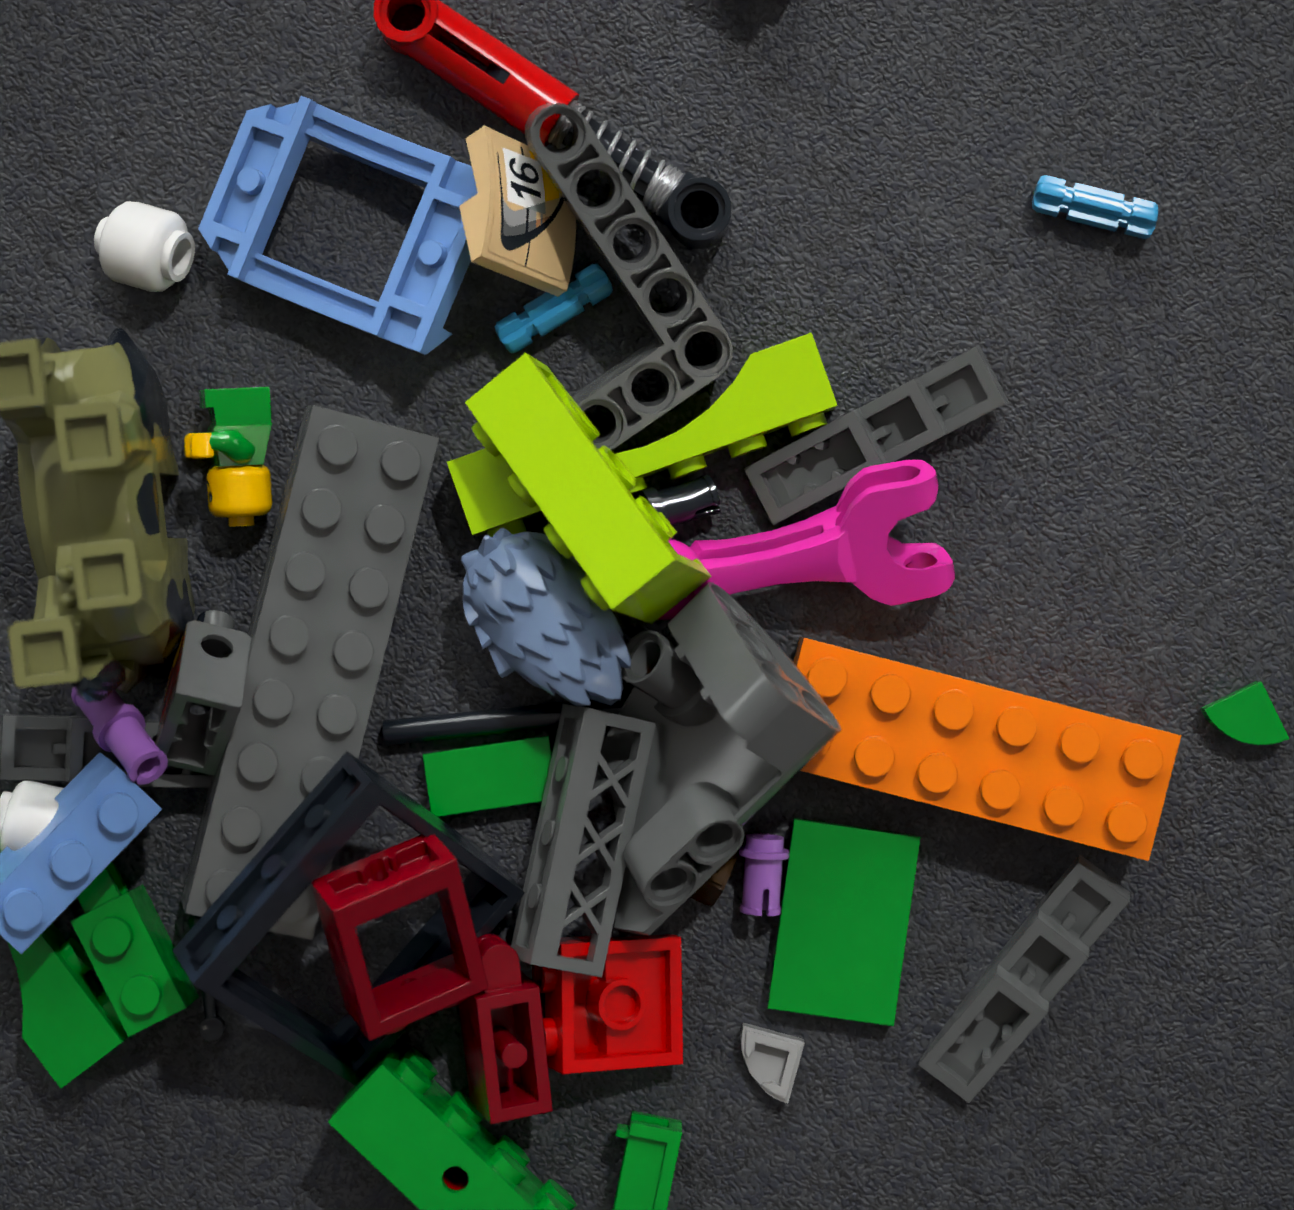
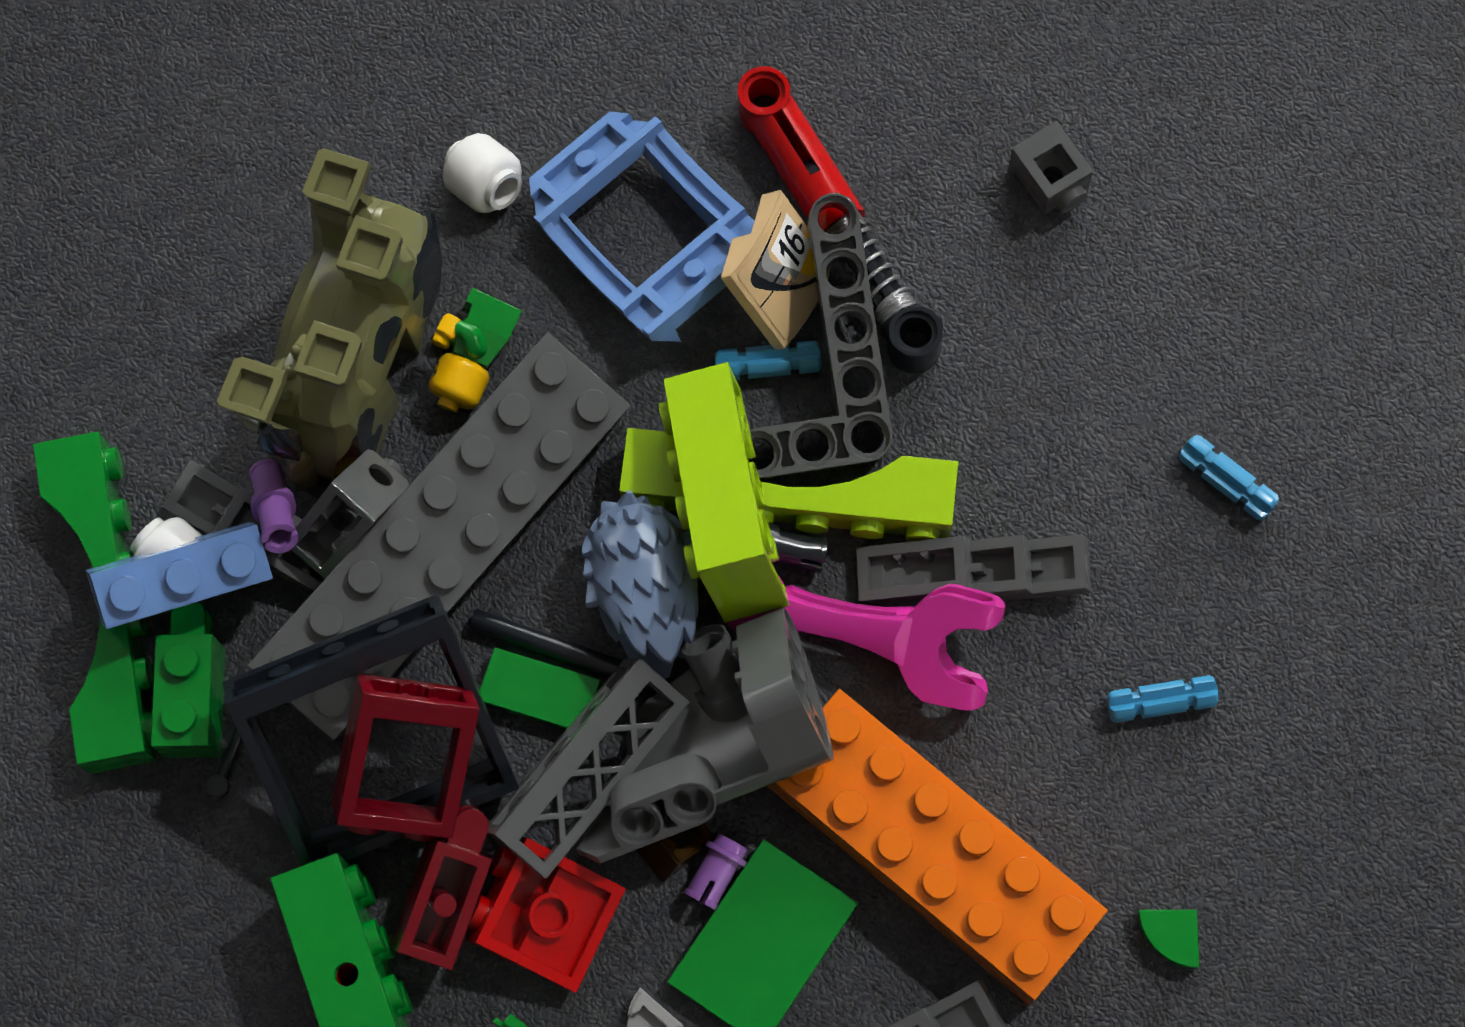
camera: 30 degrees right, 15 degrees down
(1131, 478) = (1162, 699): none -> dark azure axle

